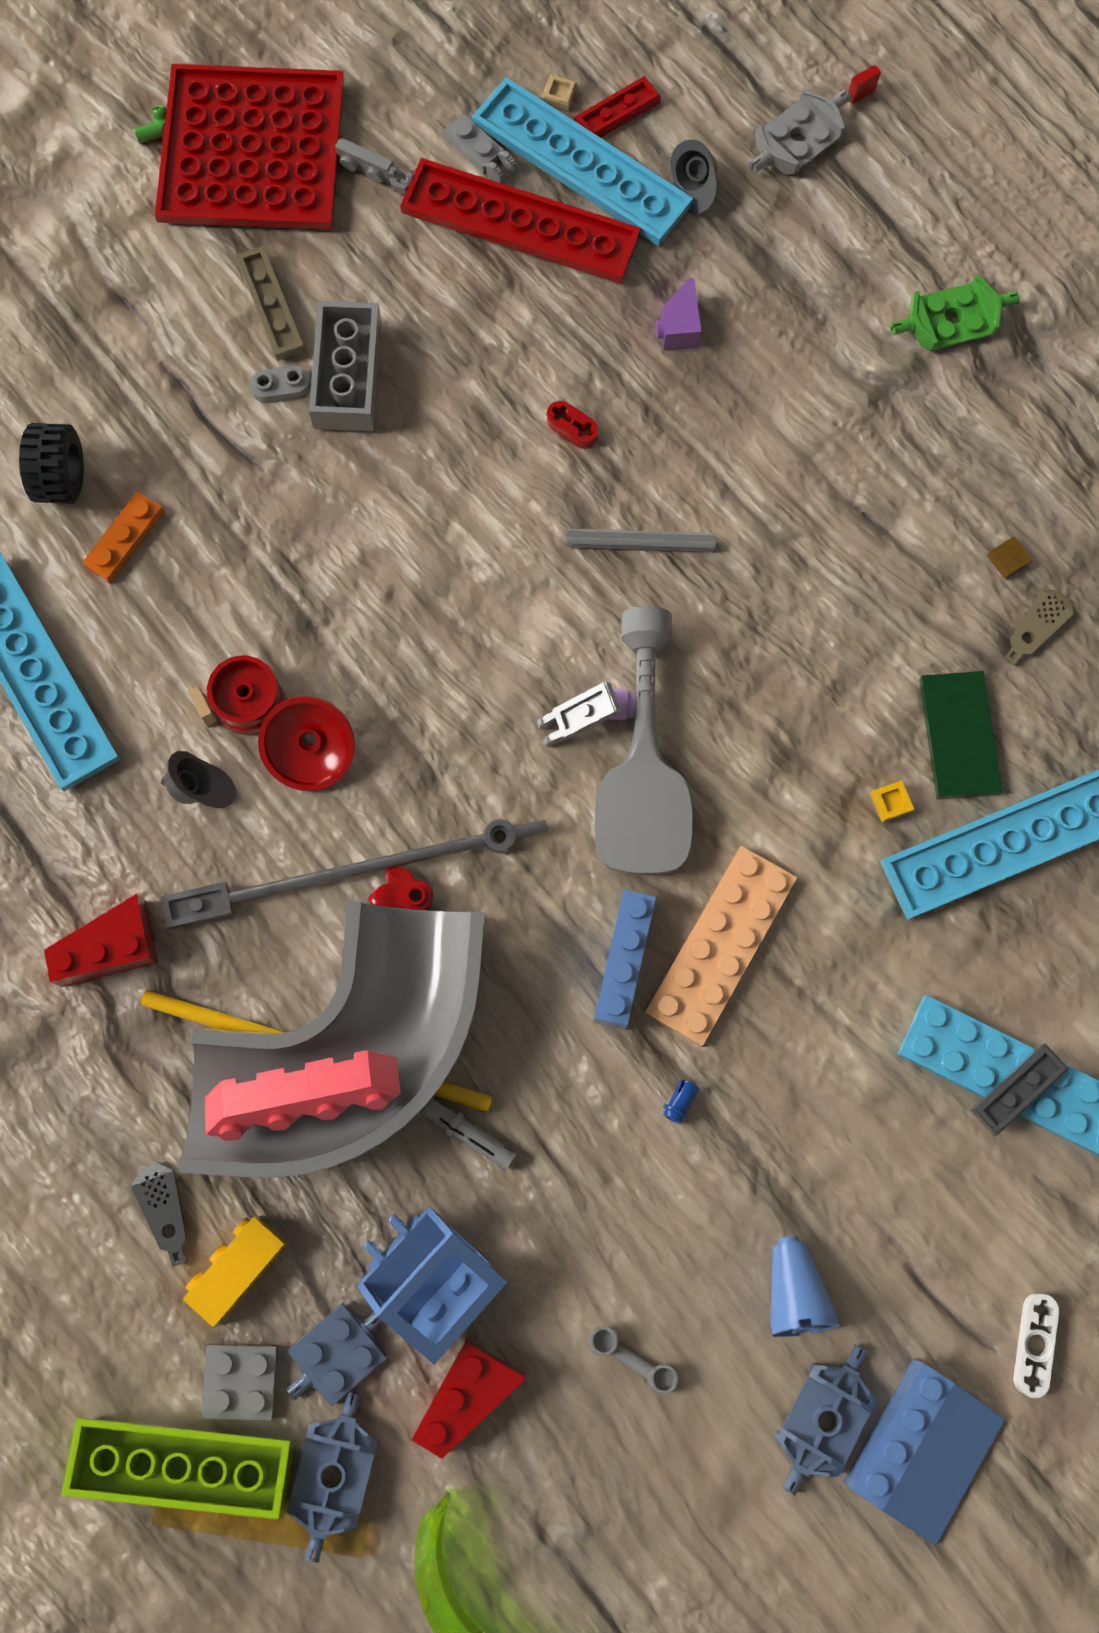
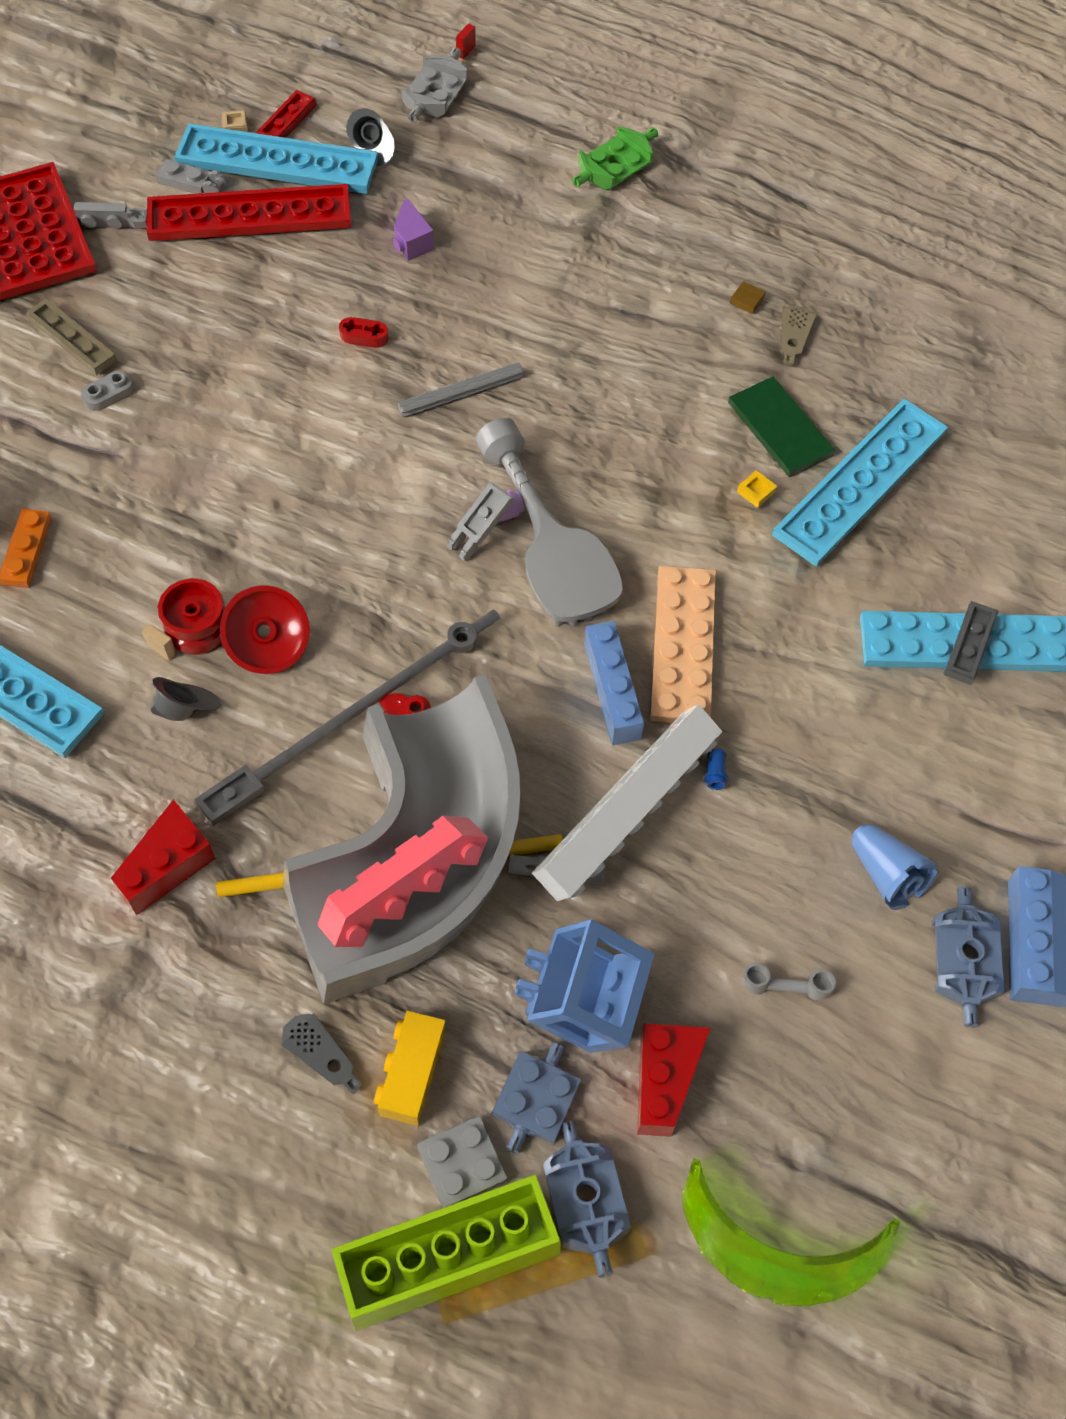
camera: 25 degrees left, 15 degrees down
(345, 366) = (159, 354): light grey brick -> none
(569, 1104) = (626, 804): none -> white brick

